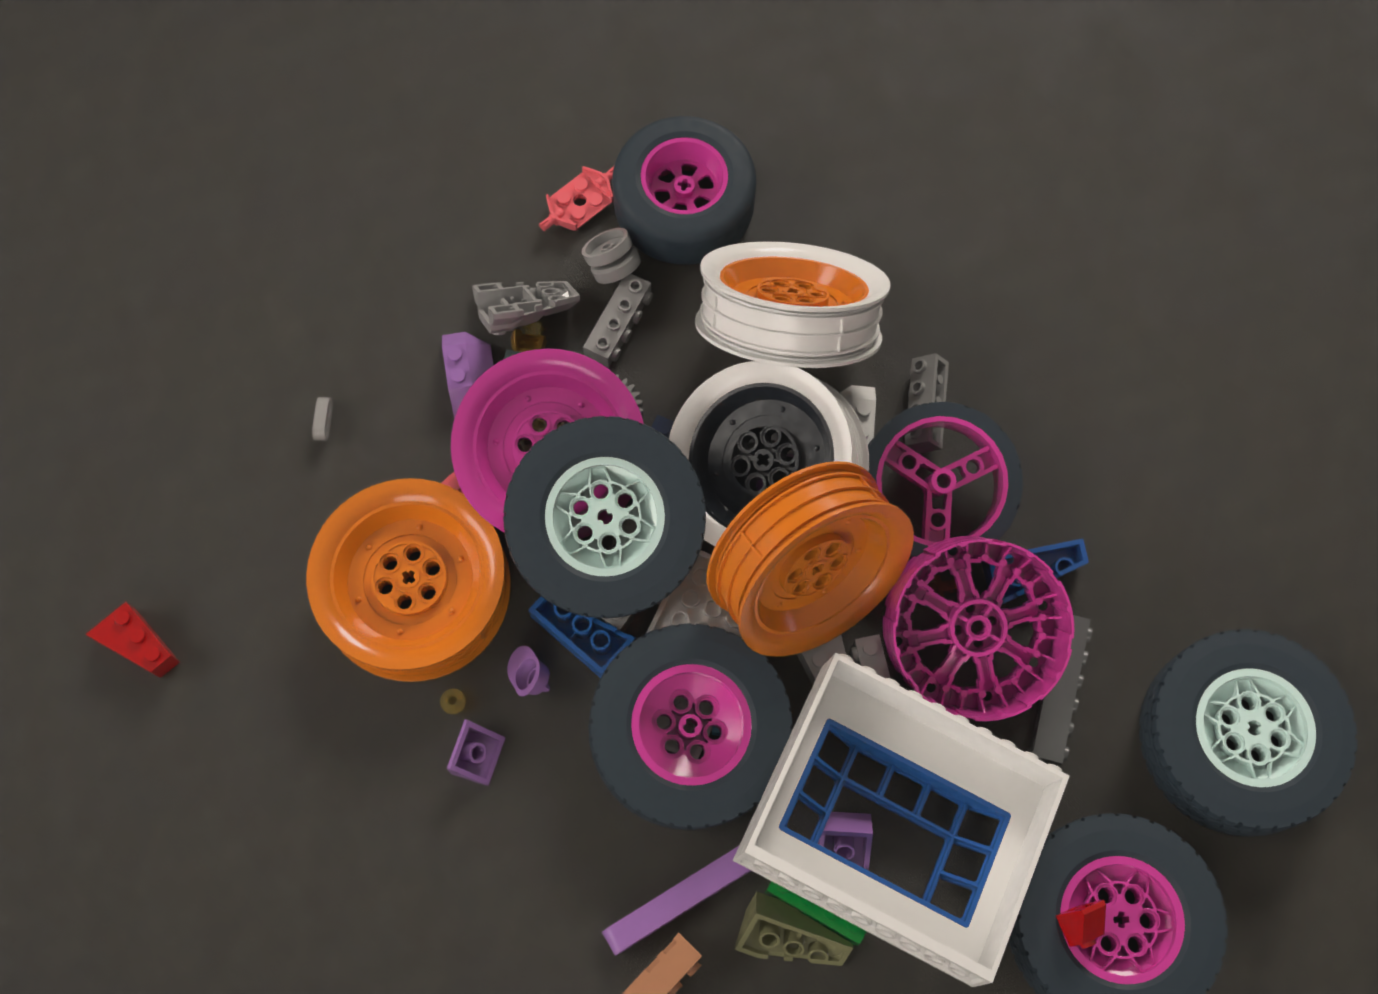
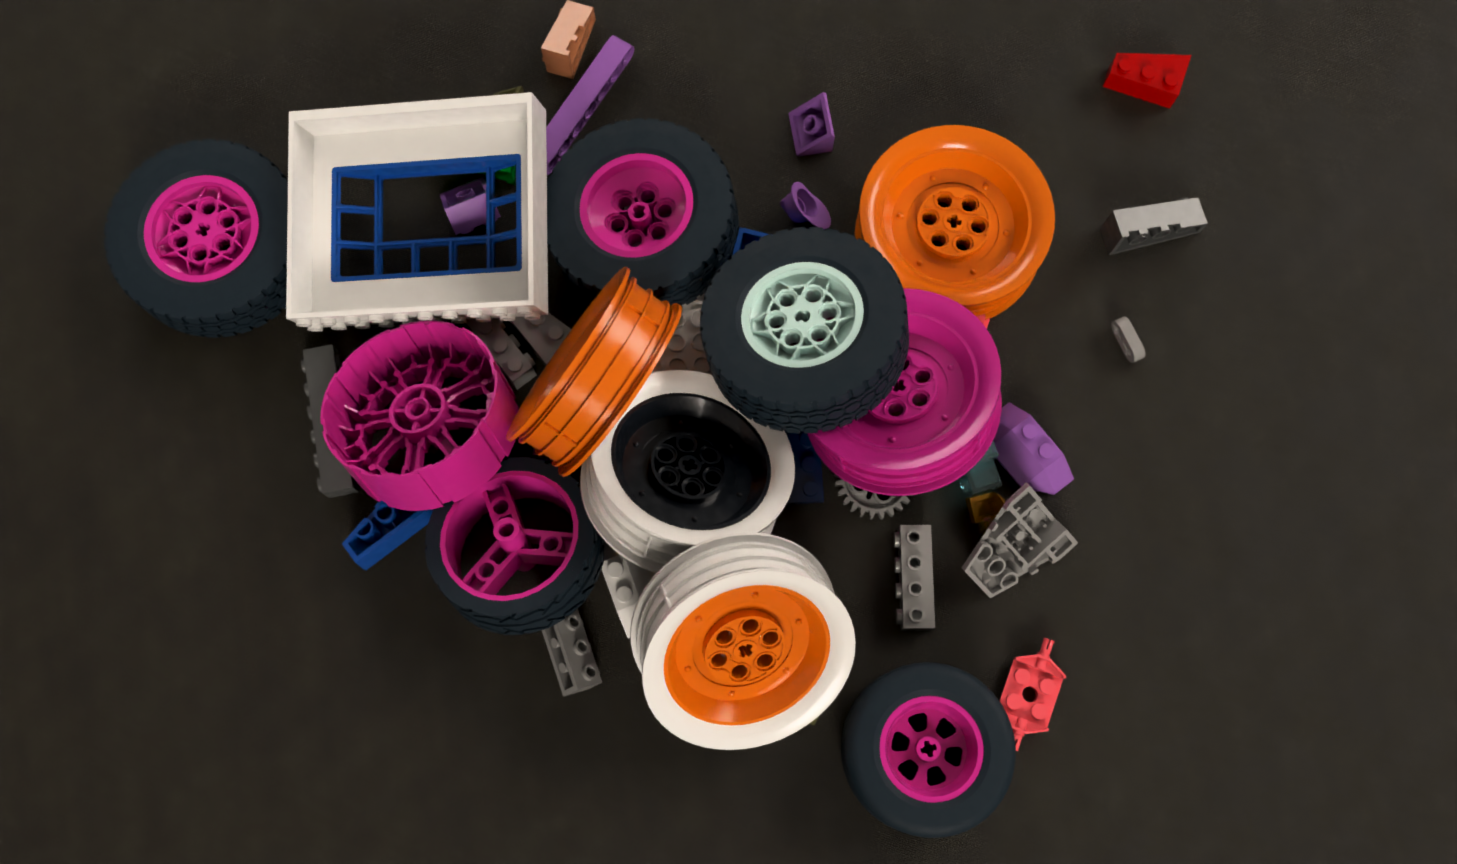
camera: 155 degrees right, 5 degrees up
(233, 502) = (1152, 224): none -> wedge
(458, 706) = (853, 165): clear yellow plate -> none
(611, 255) = (959, 634): light grey wheel -> none
(1083, 923) = (233, 200): red slope -> none
(1227, 787) = (188, 483): black wheel -> none

